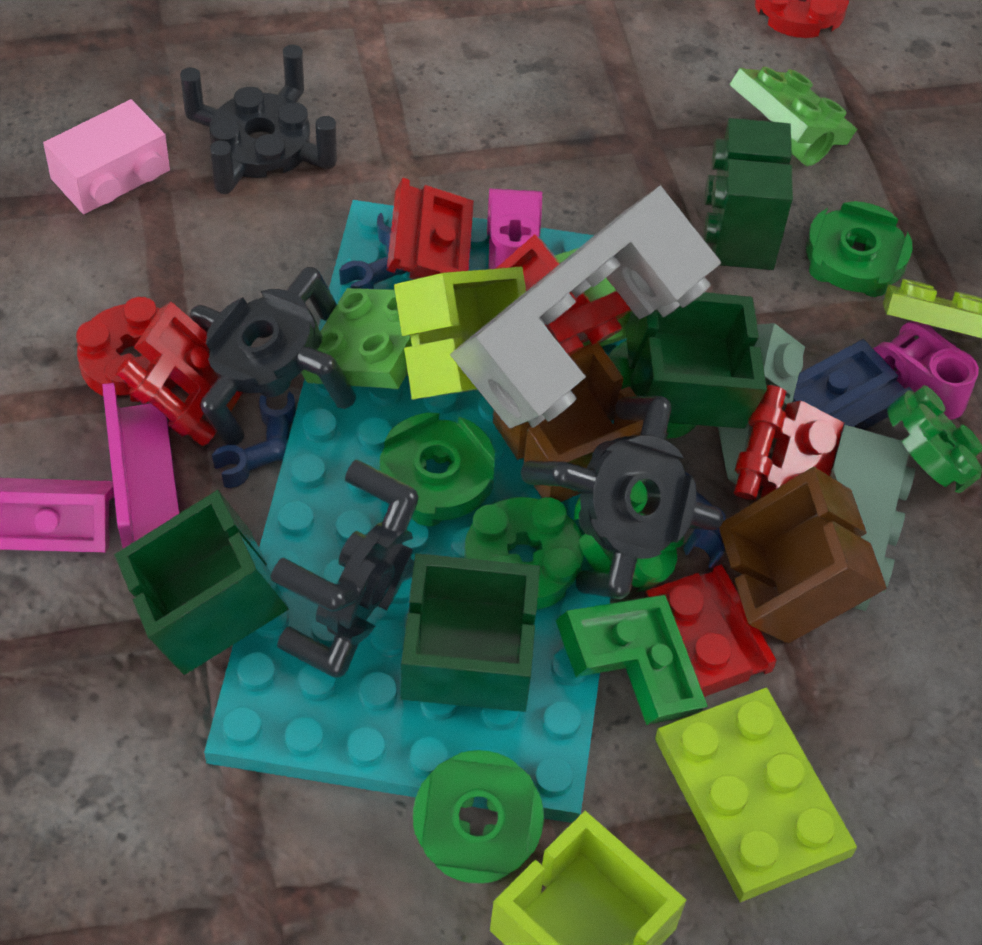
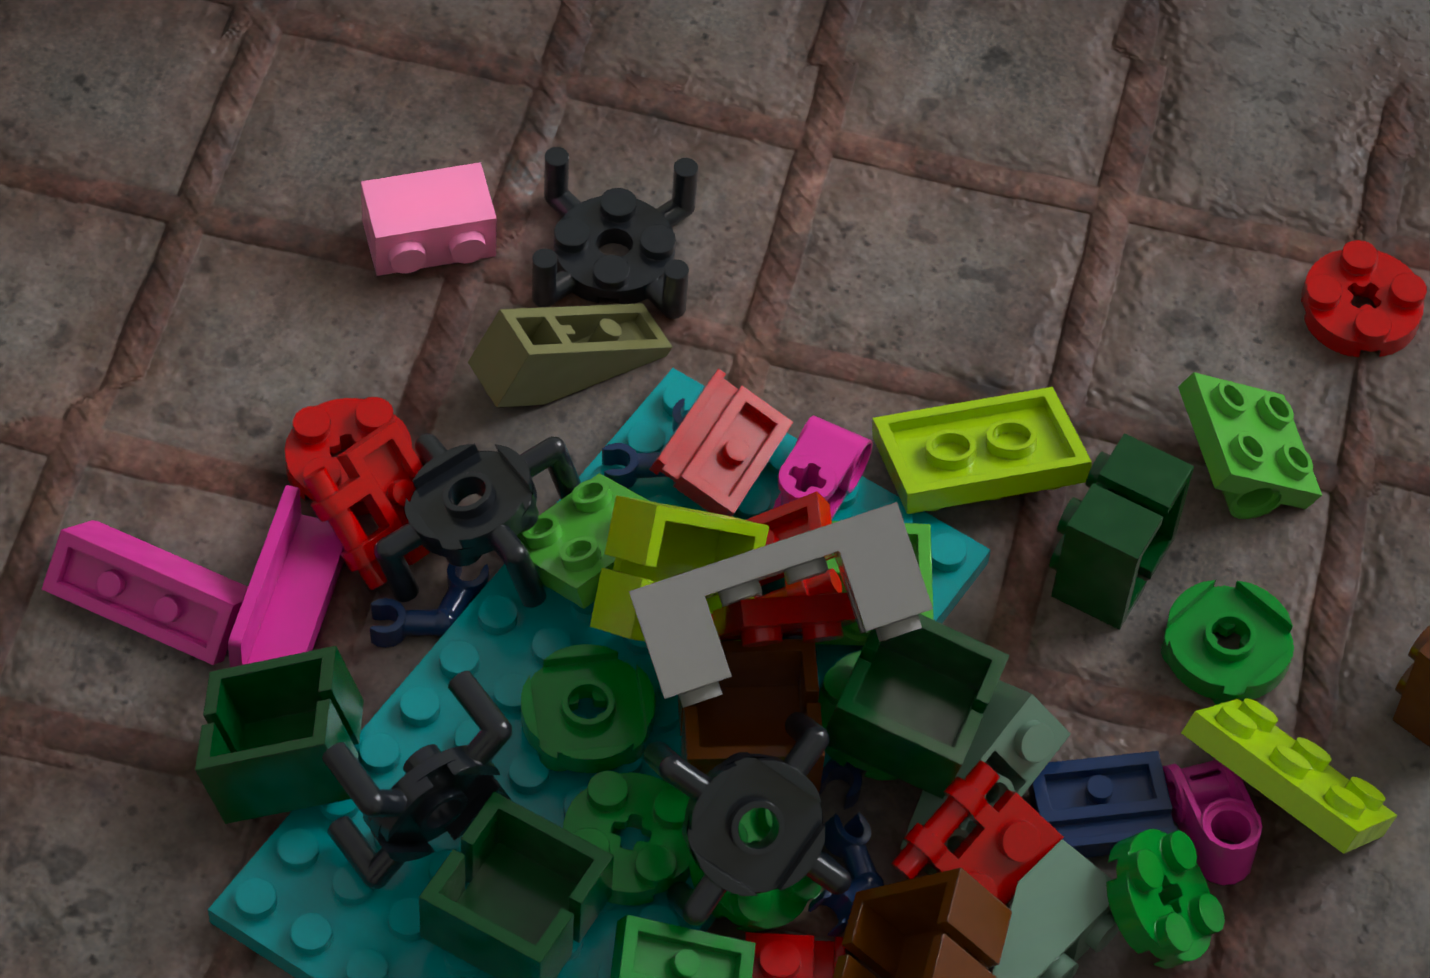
camera: 25 degrees right, 0 degrees up
(261, 215) = (557, 351): none -> olive slope
(612, 176) = (980, 450): none -> lime plate

